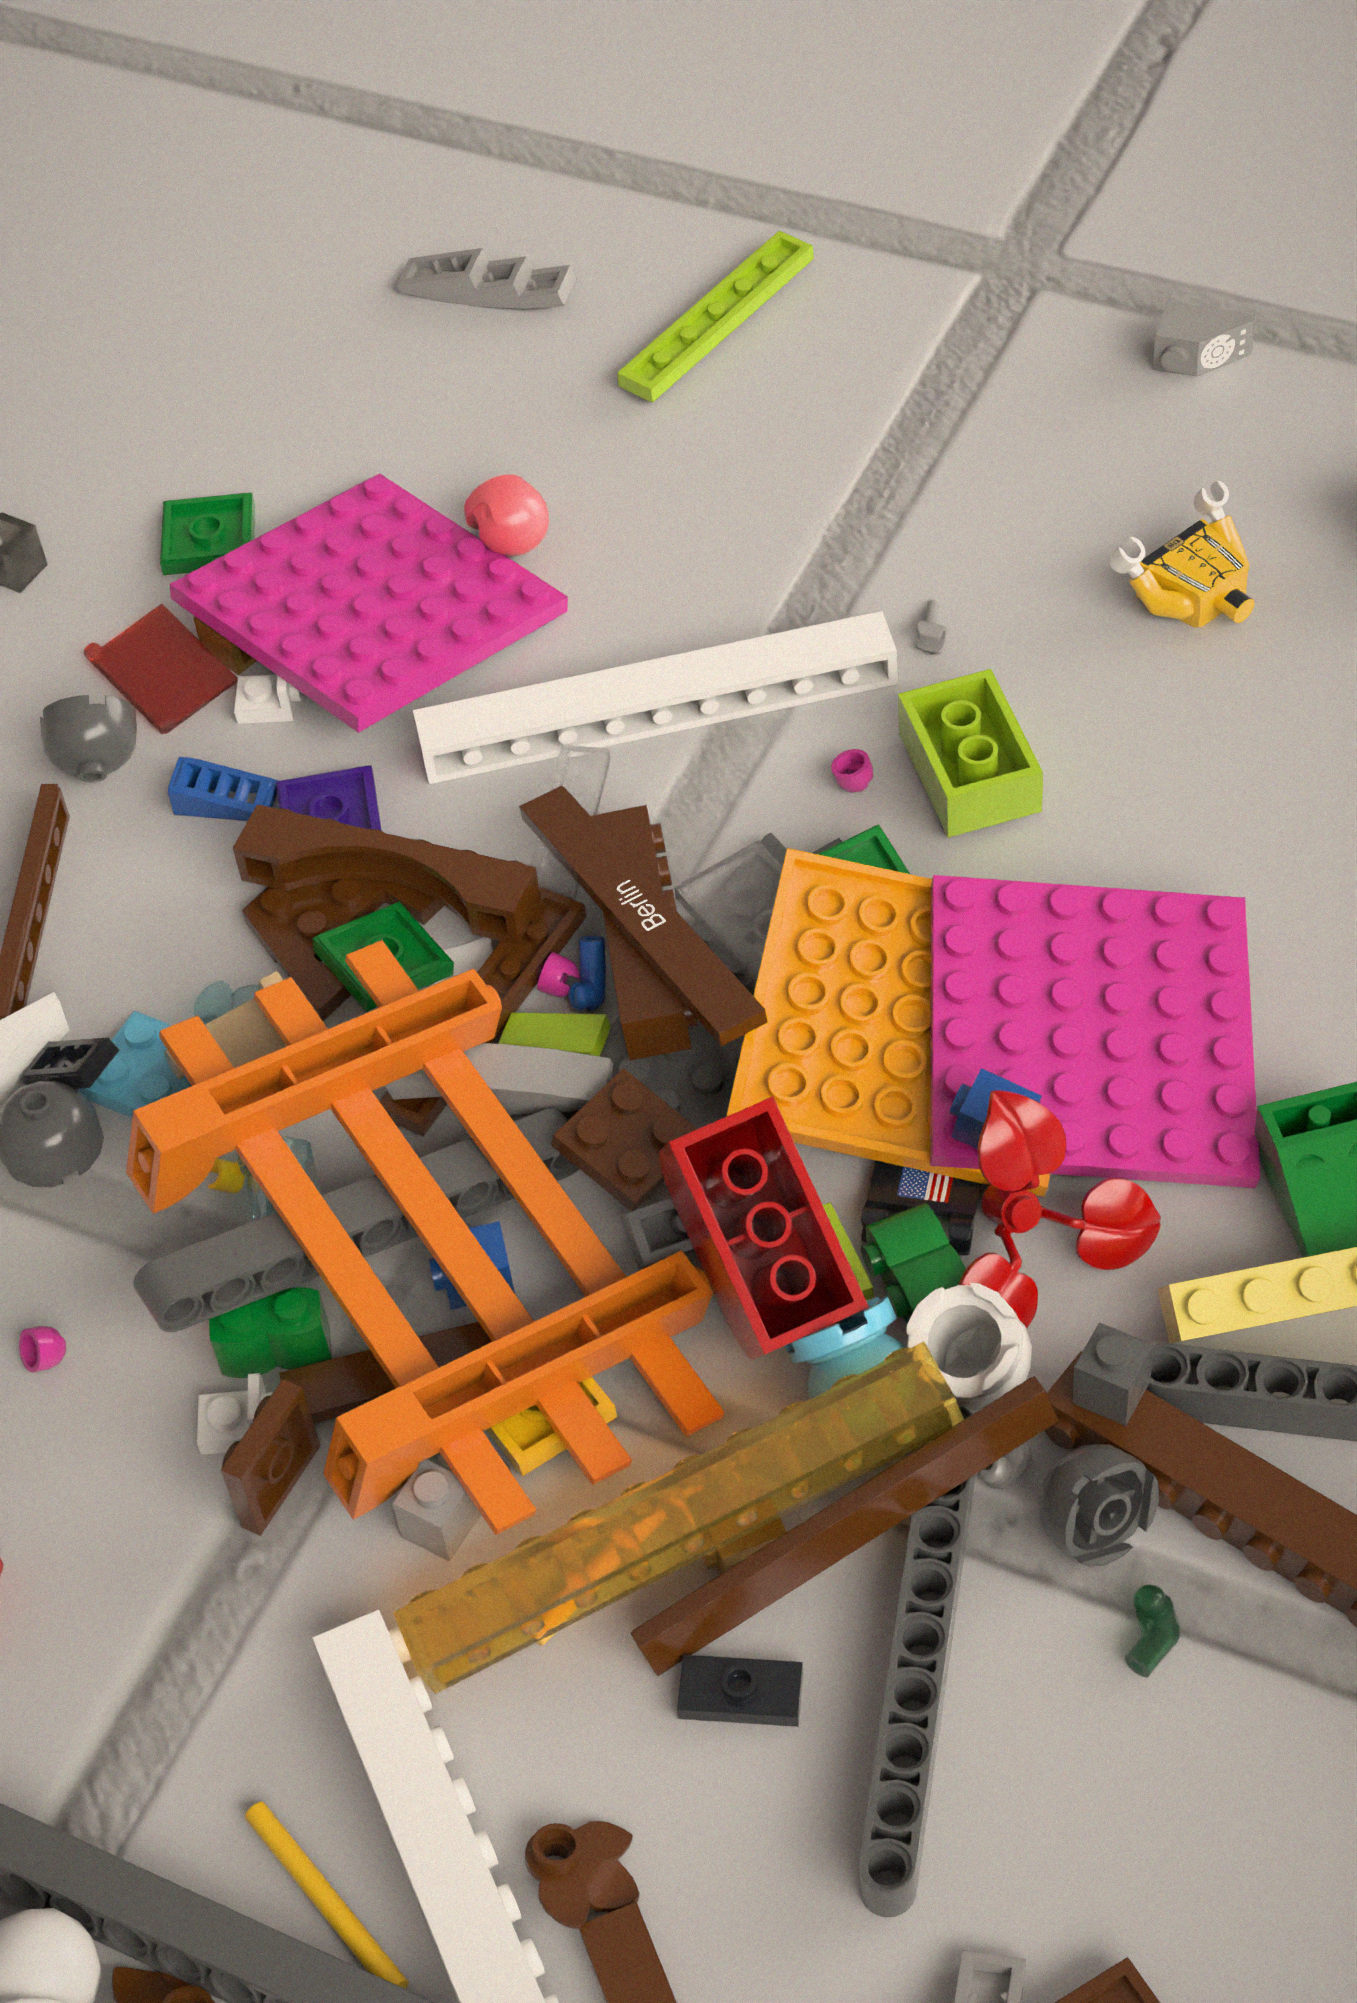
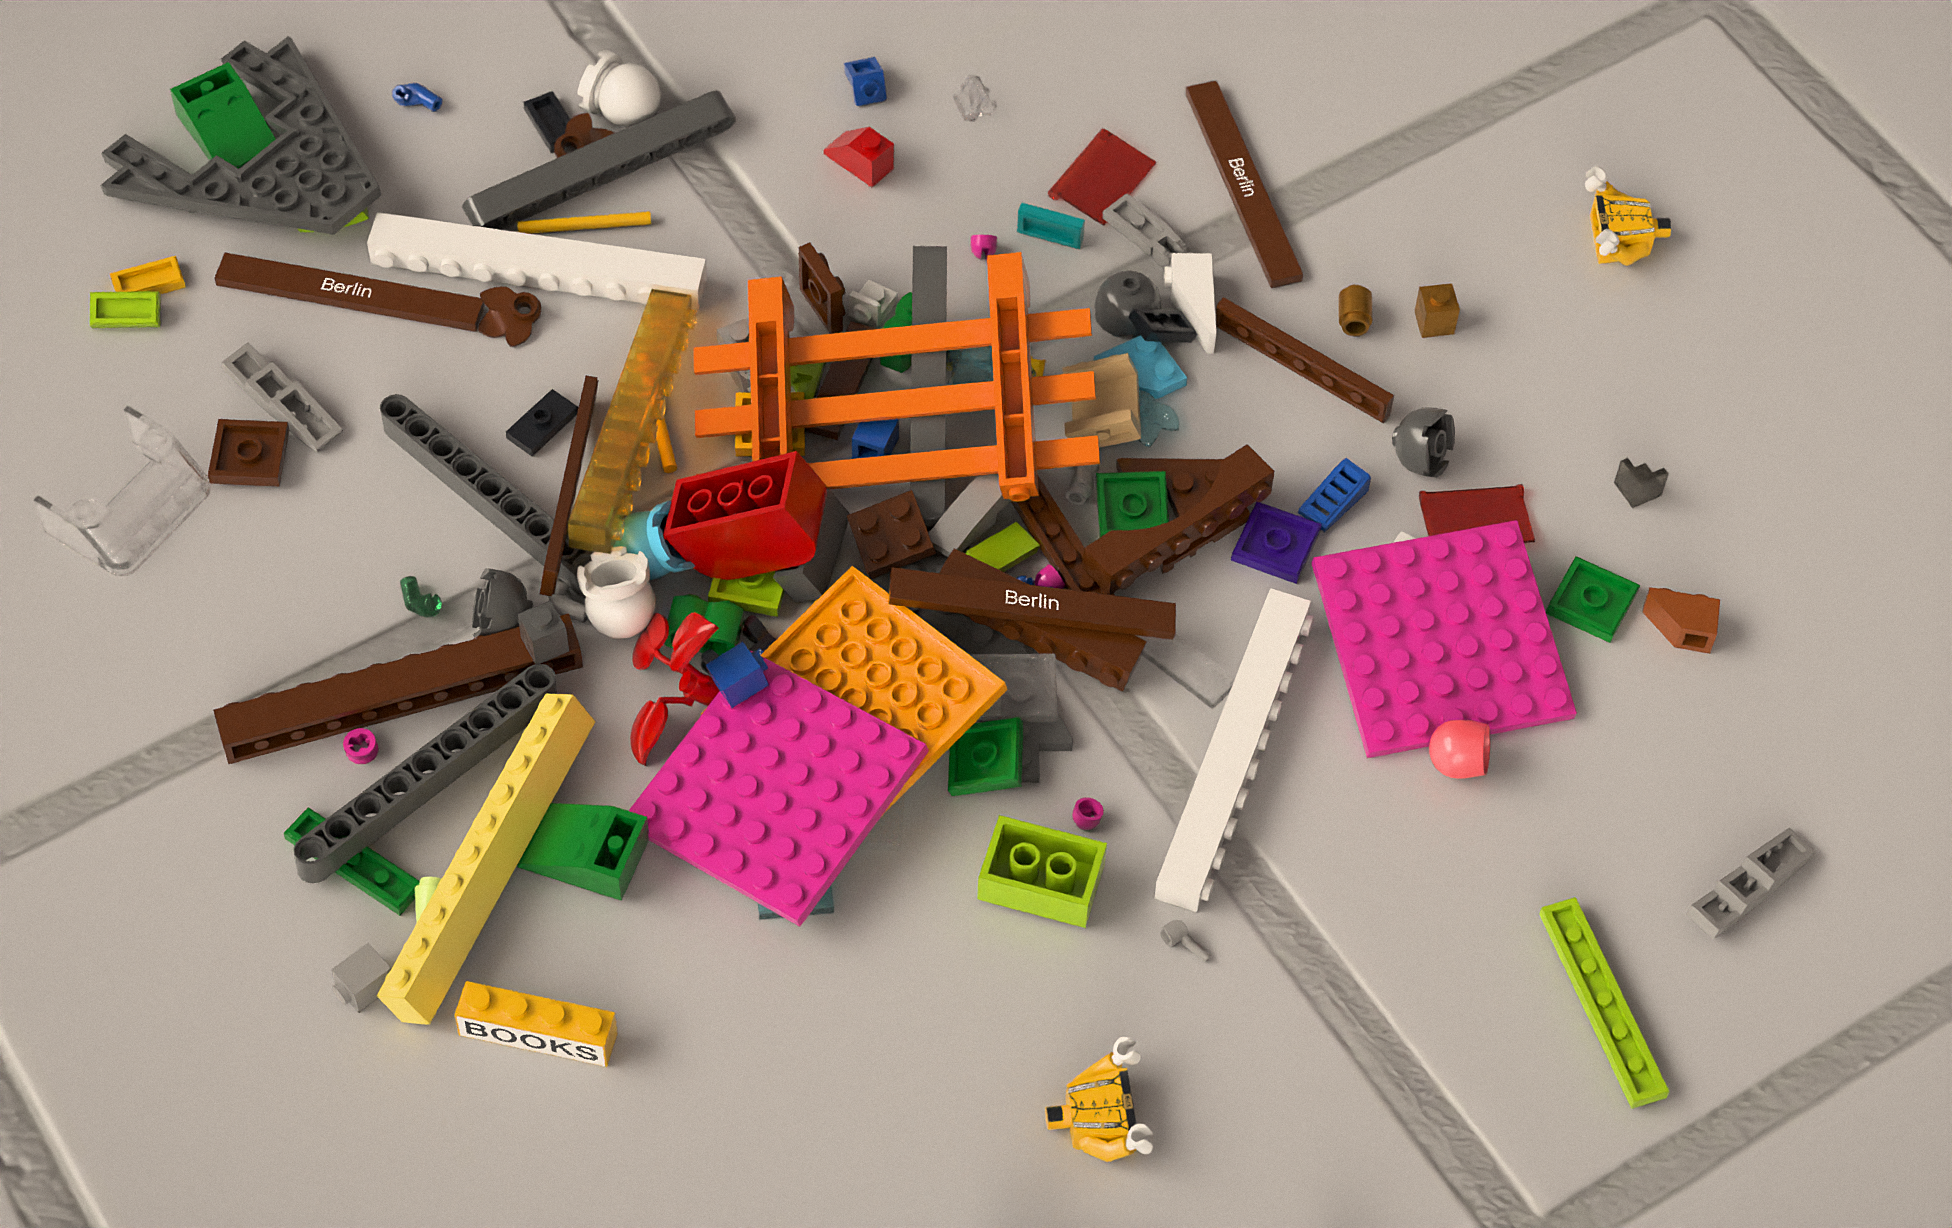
camera: 115 degrees right, 5 degrees up
(188, 443) = (1683, 618): none -> dark orange slope

